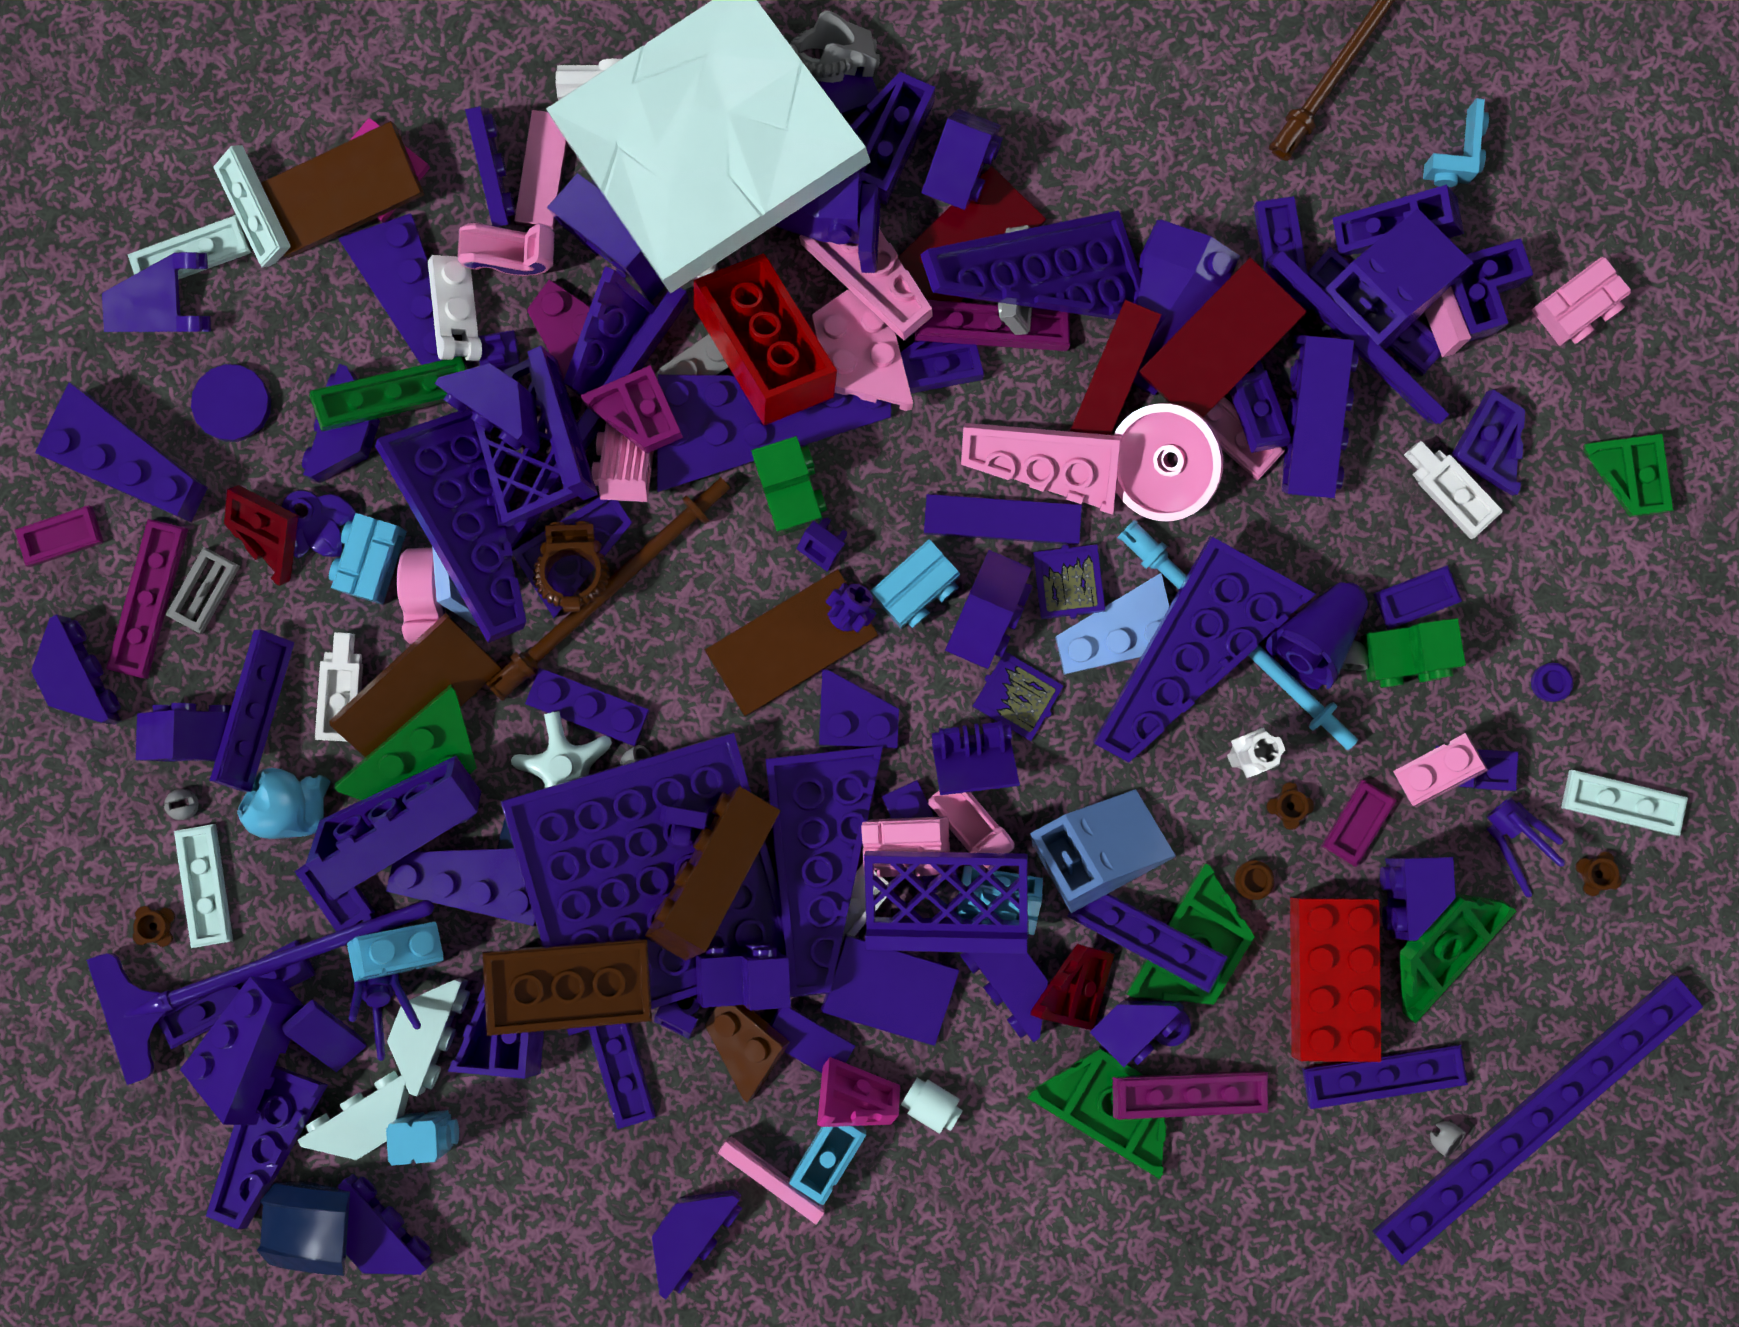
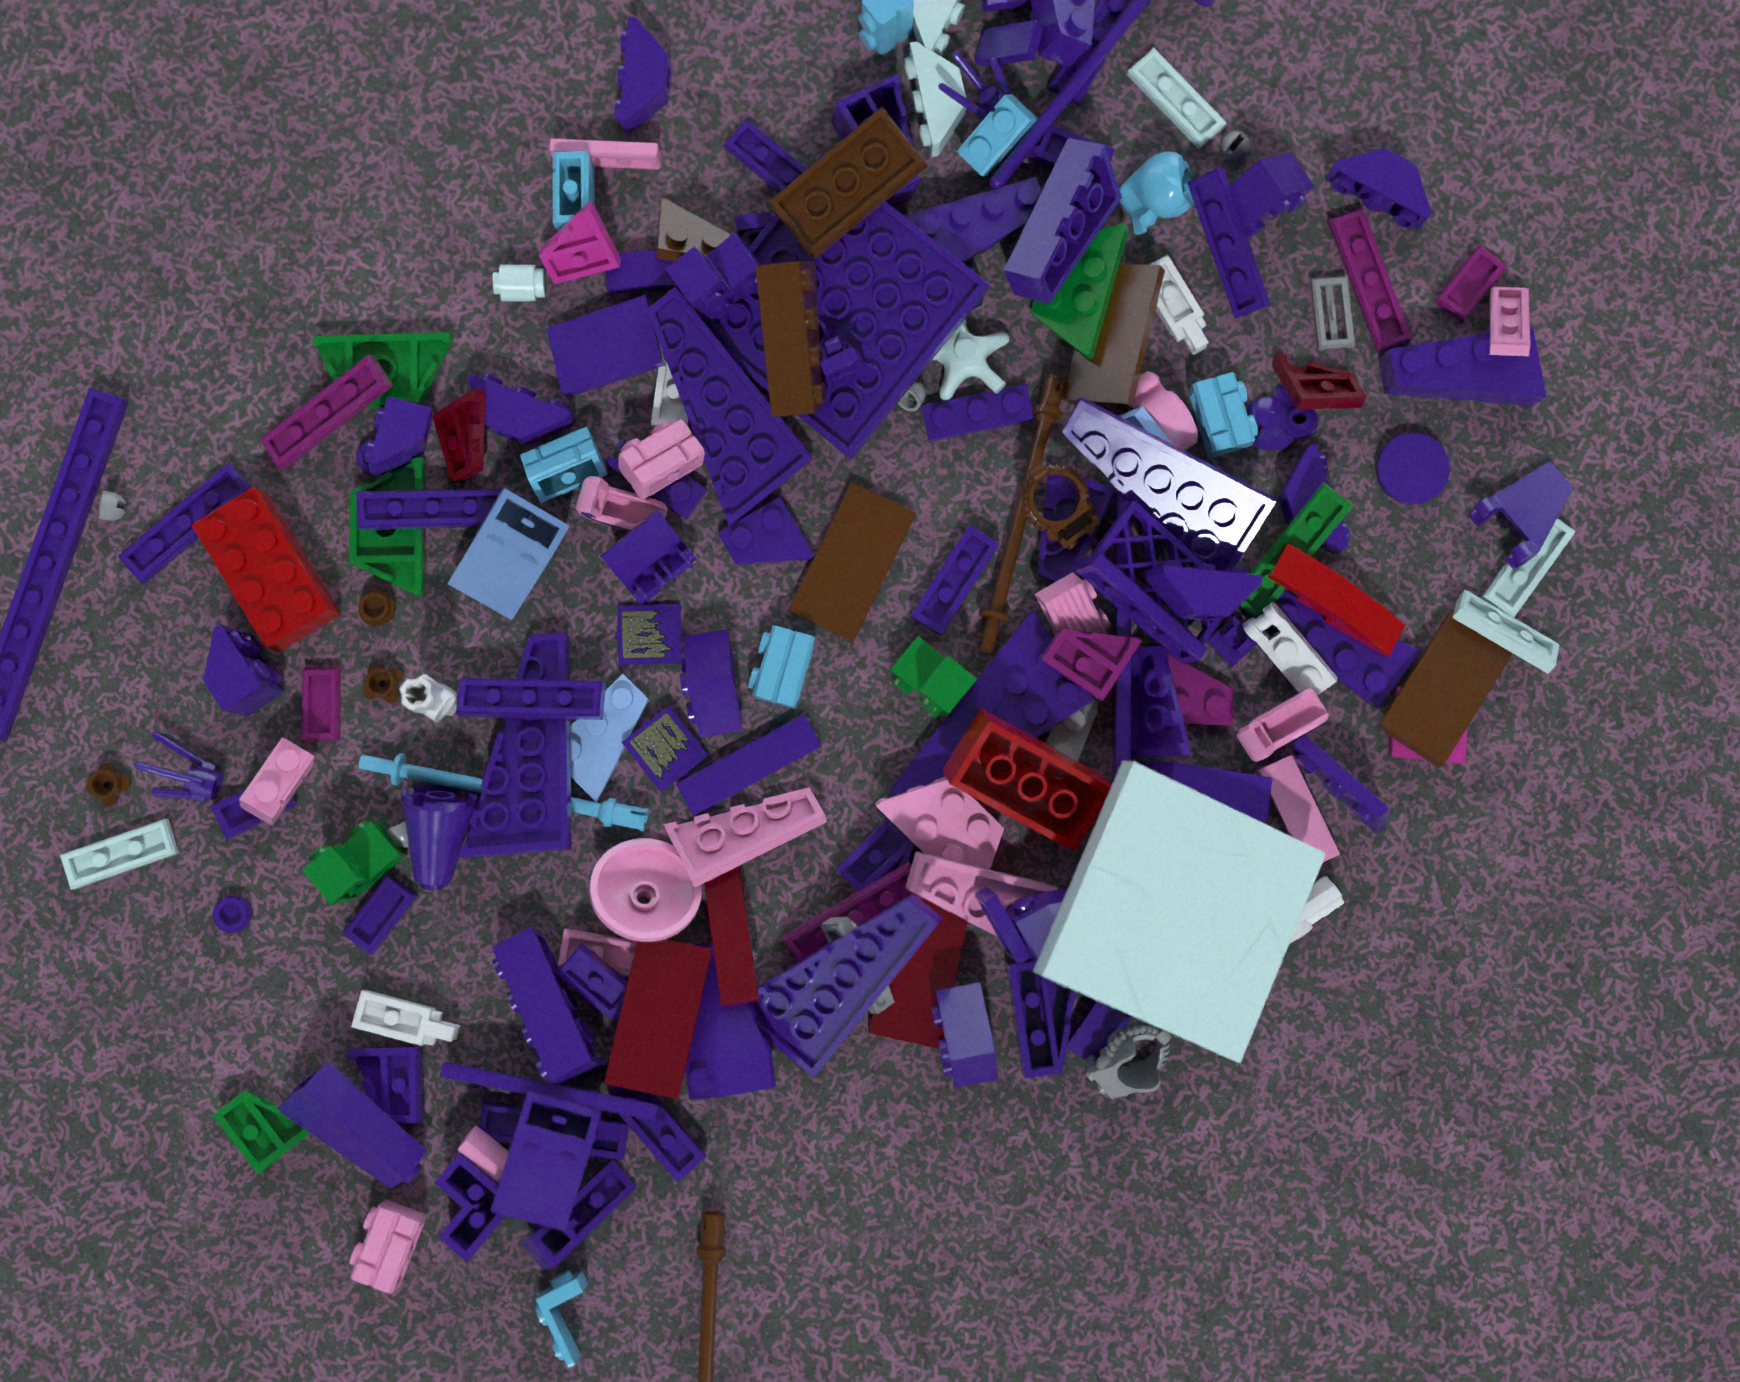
camera: 150 degrees right, 0 degrees up
(52, 470) = (1509, 321): none -> bright pink tile
(142, 926) = (1198, 37): reddish brown plate -> none
(382, 324) = (1337, 599): none -> red slope
(709, 565) = (954, 580): none -> dark purple plate
(821, 545) = (877, 650): dark purple tile -> none
(851, 607) = (821, 613): dark purple gear -> none
(950, 933) = (587, 411): dark purple fence -> none
(1163, 698) = (531, 698): none -> dark purple tile
(1447, 949) = (189, 648): green wing -> none
(1552, 421) = (353, 1126): none -> dark purple slope

